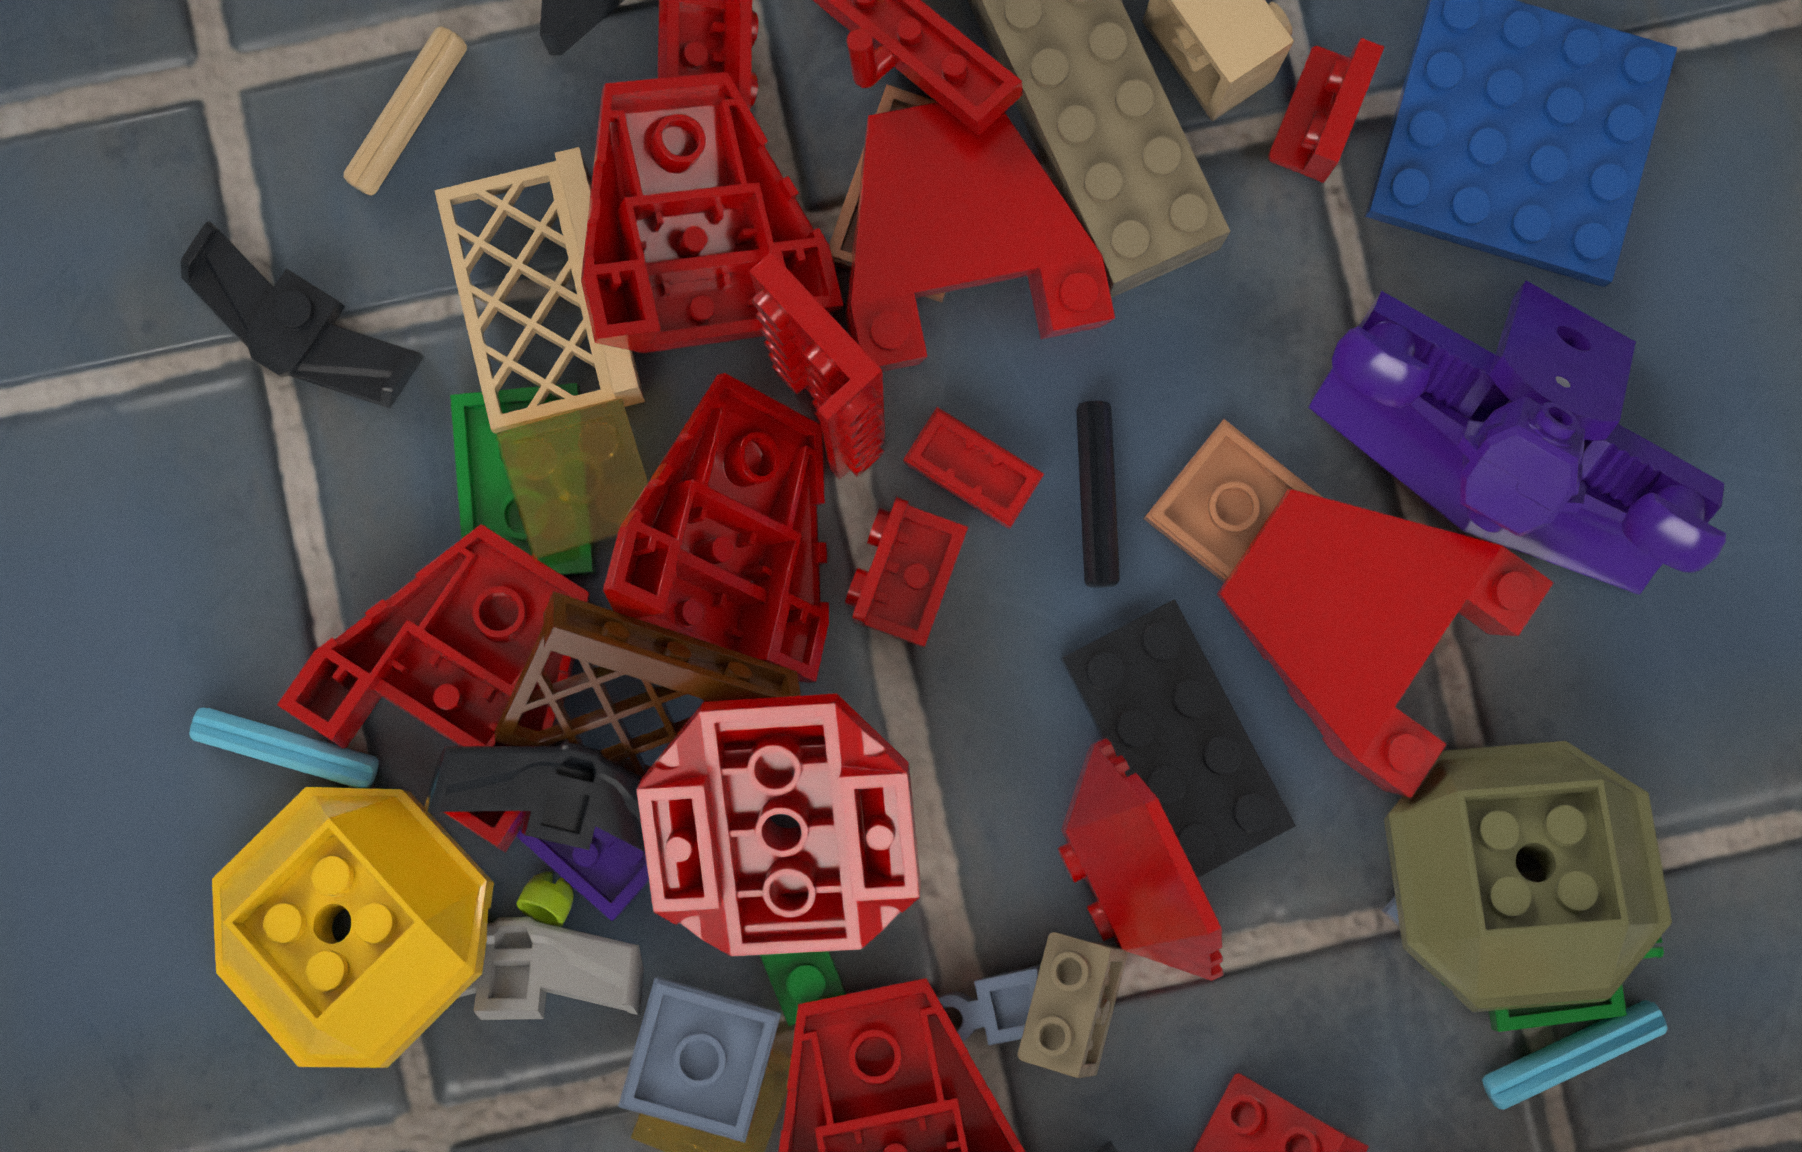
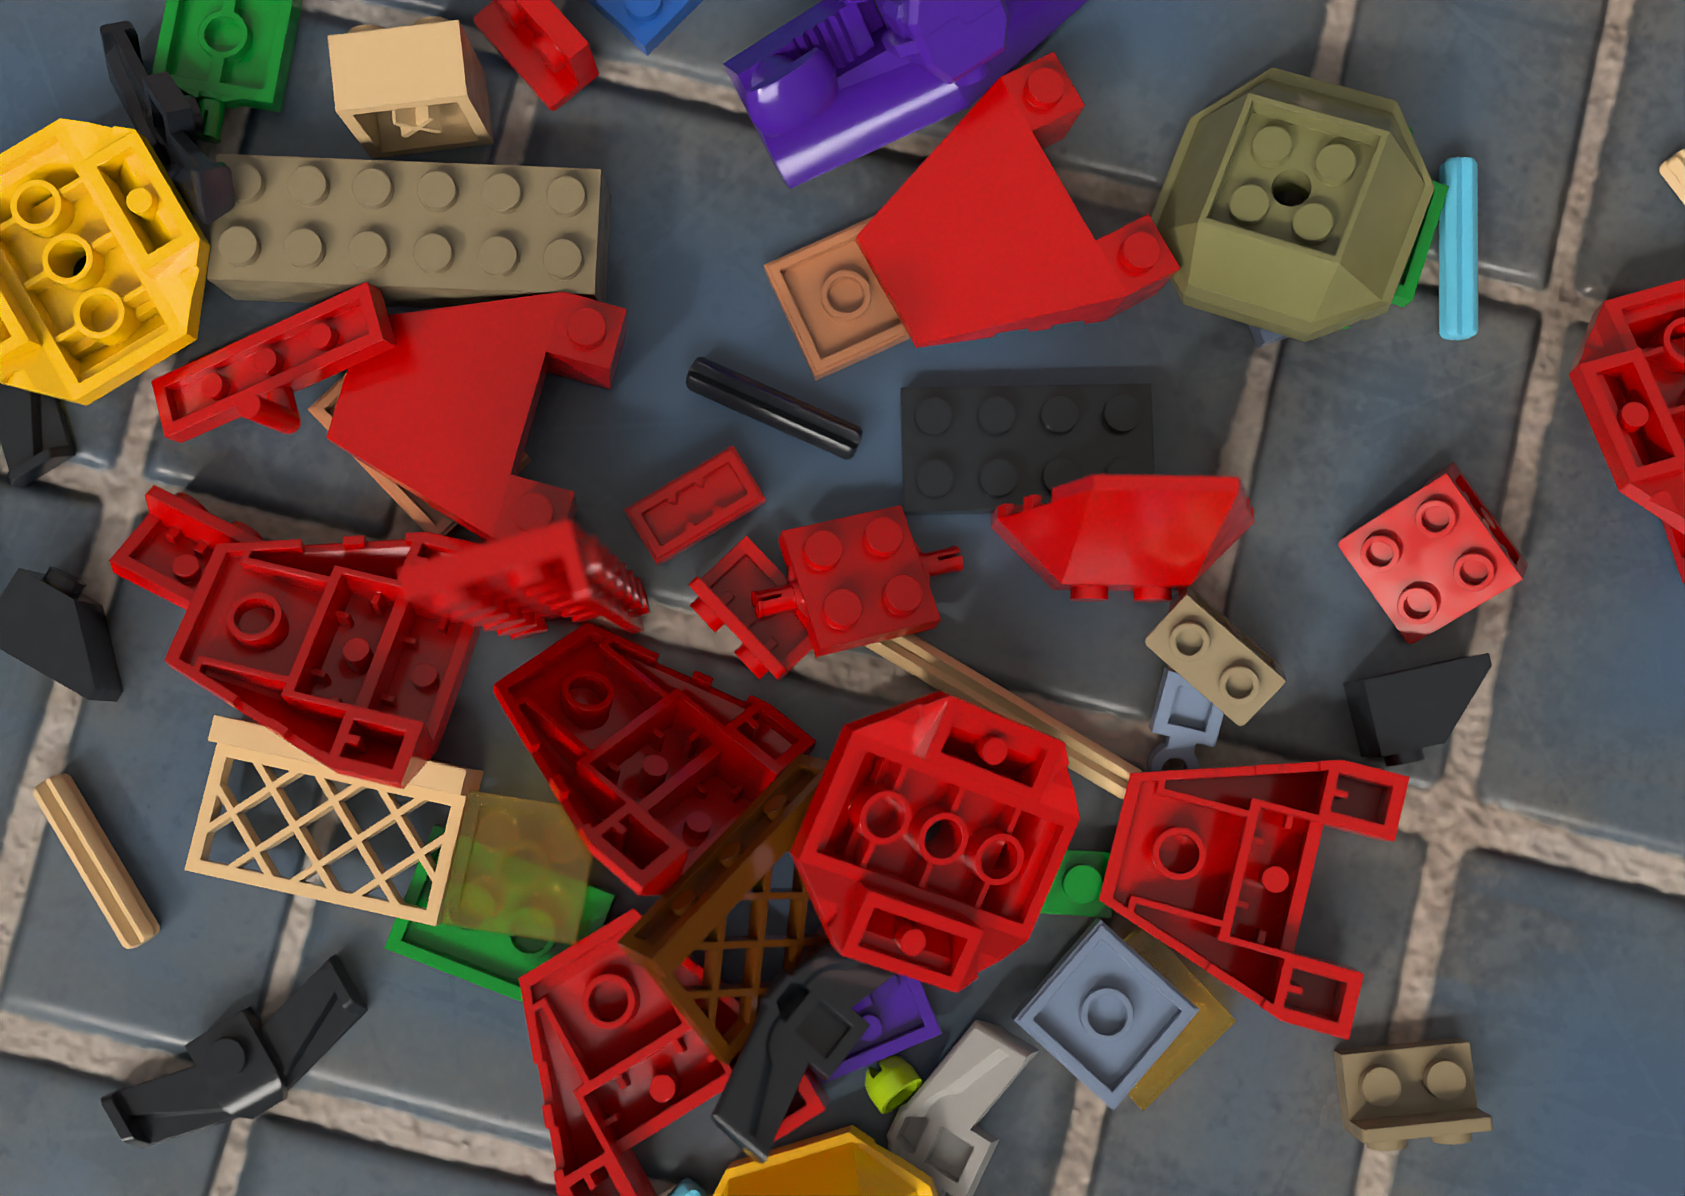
camera: 70 degrees left, 0 degrees up
(931, 825) = (963, 682): none -> tan axle
(977, 647) = (857, 580): none -> red plate

